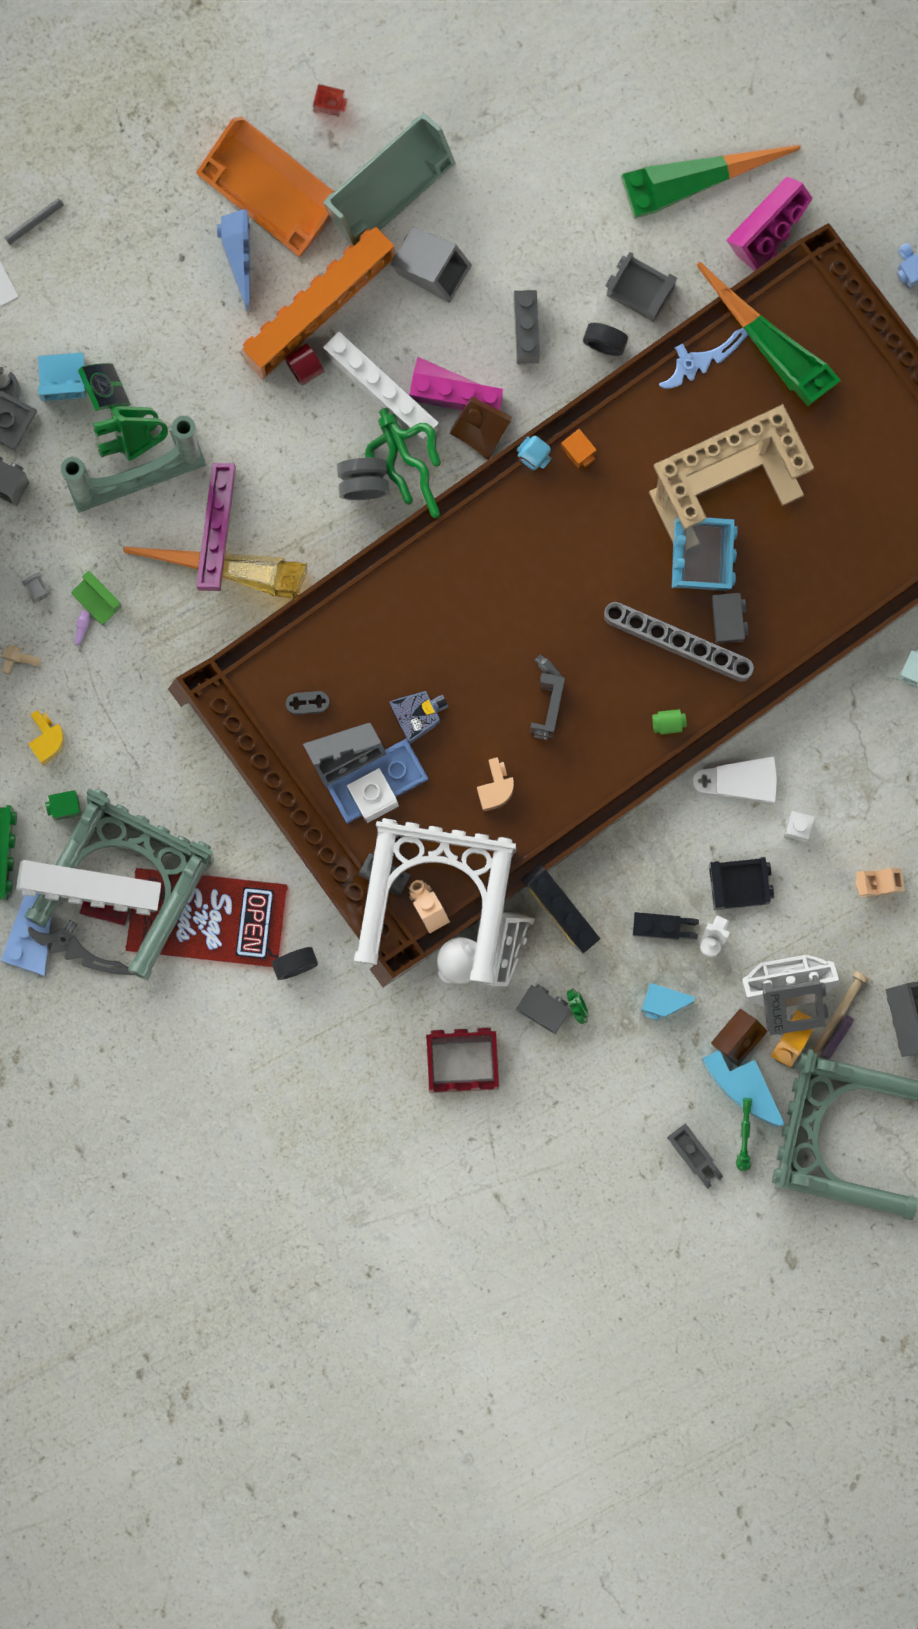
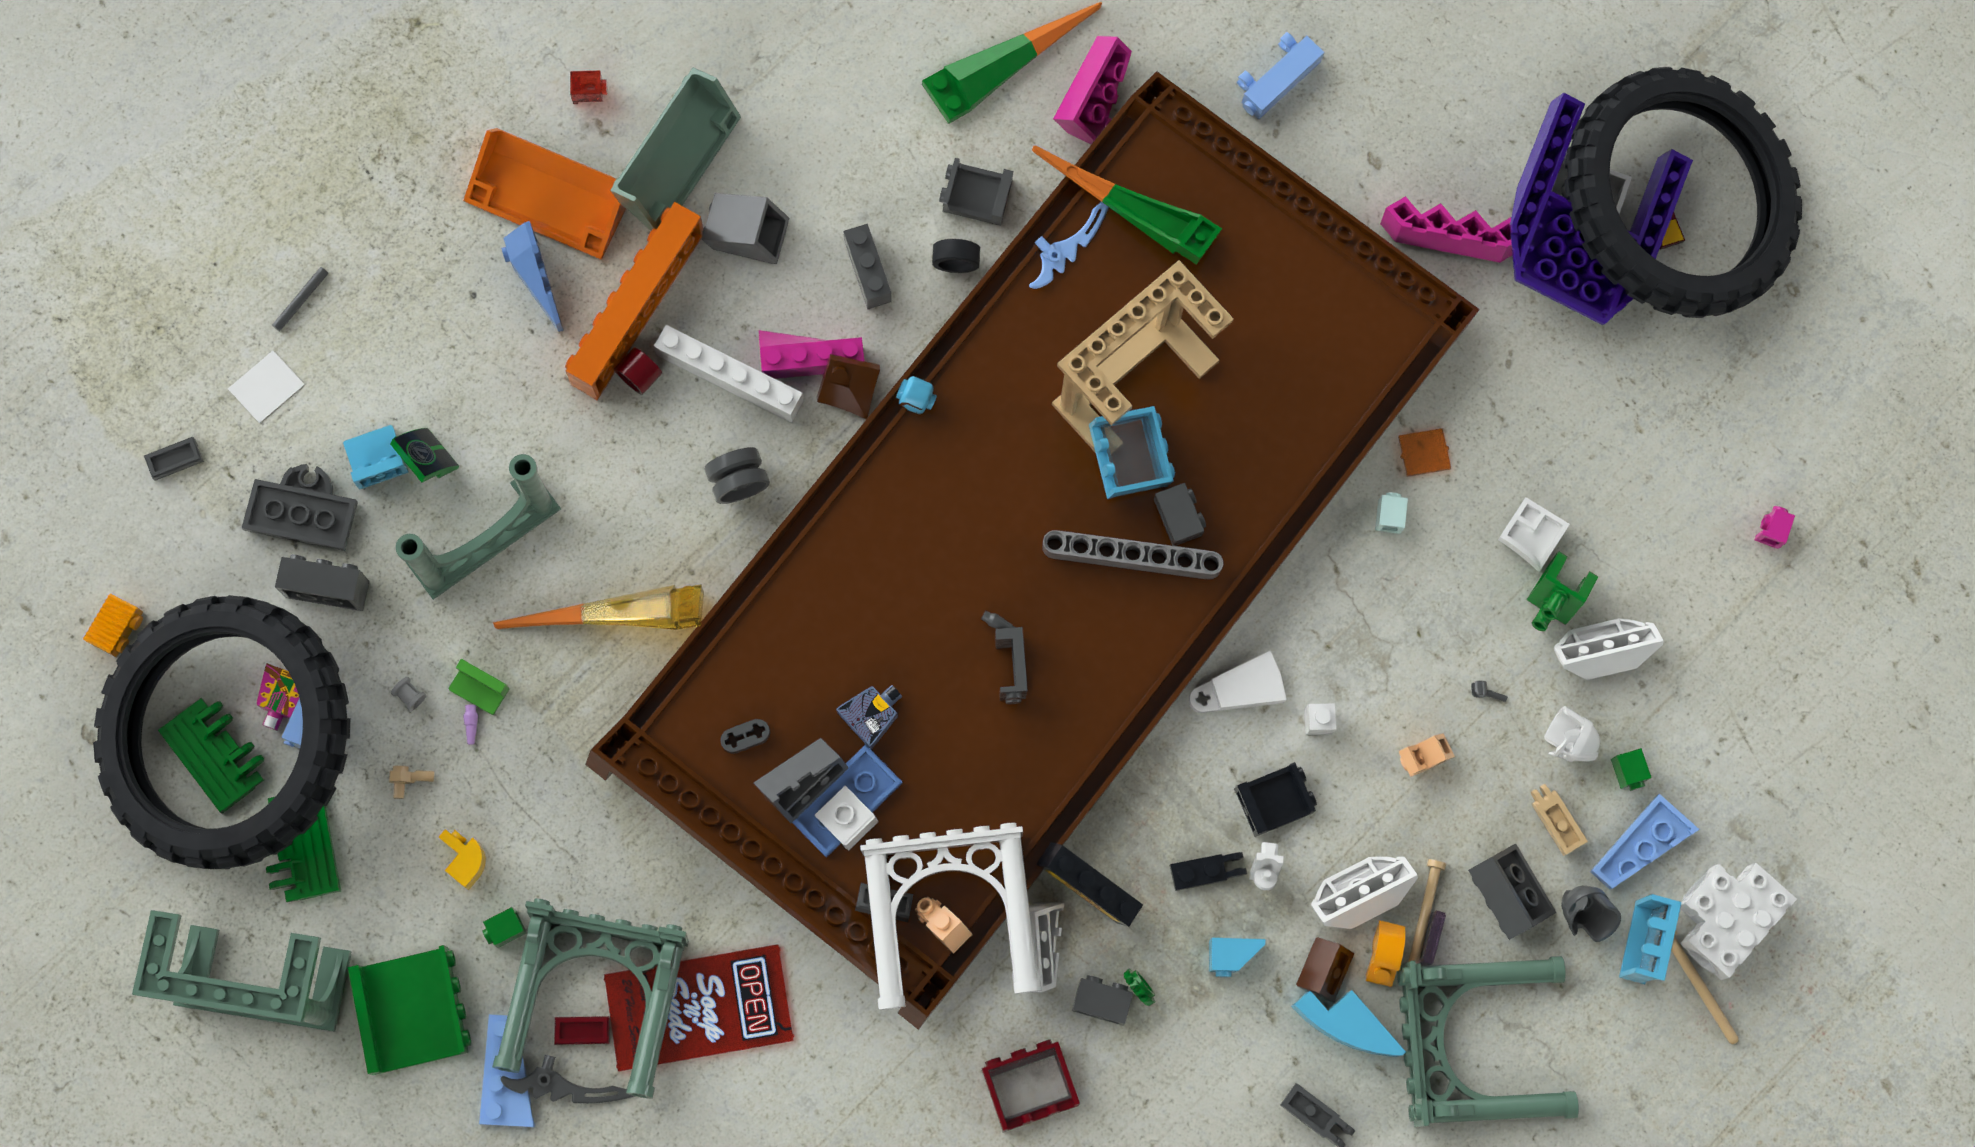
camera: 20 degrees left, 5 degrees down
(88, 886) = (555, 1011): white brick -> none
(130, 430) = (467, 494): green piece -> none
(216, 527) = (590, 572): magenta plate -> none
(294, 963) = (812, 1030): black tyre -> none
(395, 439) = (759, 423): green plant -> none
(456, 960) = (992, 975): white brick -> none
(496, 793) = (984, 775): light nougat brick -> none
(579, 449) = (963, 378): orange brick -> none
(669, 722) = (1148, 644): bright green brick -> none
(743, 1160) = (1371, 1104): green piece -> none
(775, 1006) = (1358, 923): dark grey window -> none

